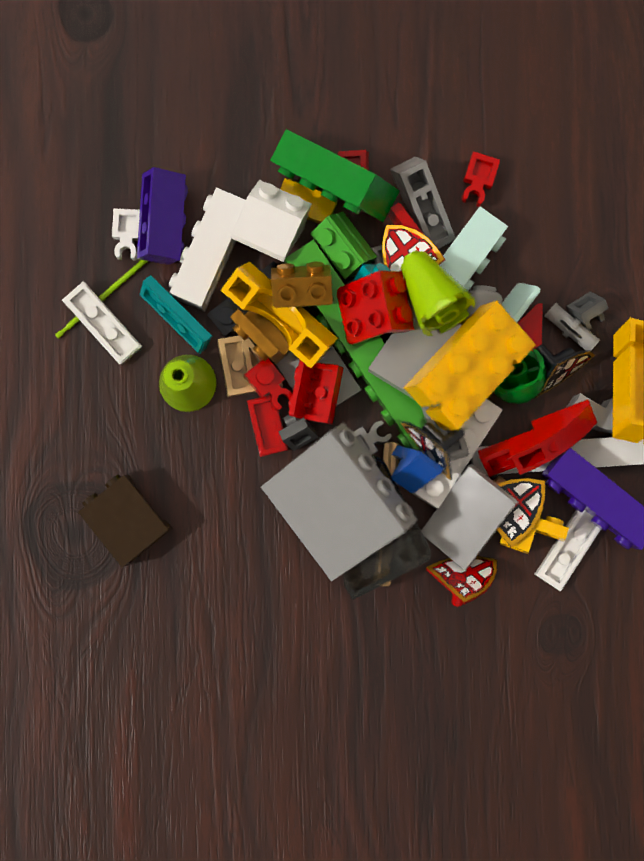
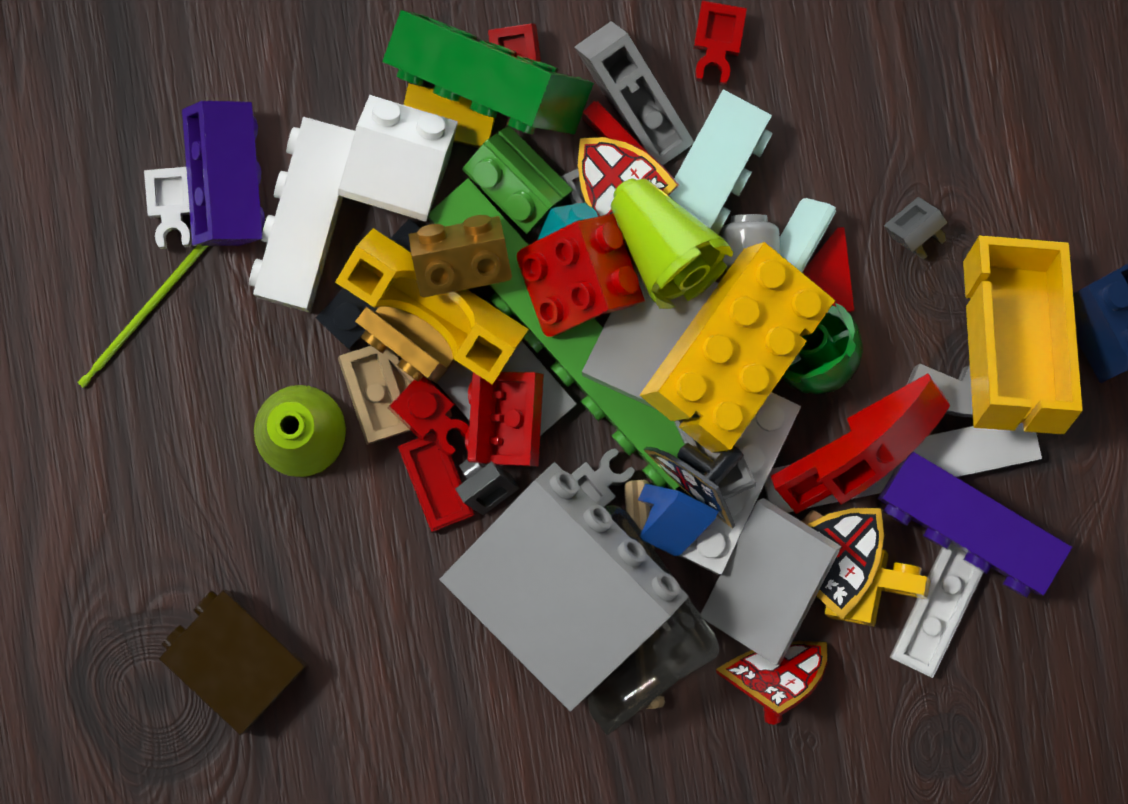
camera: 10 degrees left, 0 degrees up
(102, 323) = (151, 355): white tile -> none
(175, 314) = (265, 326): teal tile -> none
(562, 365) = (885, 322): shield -> none
(572, 327) = (896, 259): light grey pin -> none

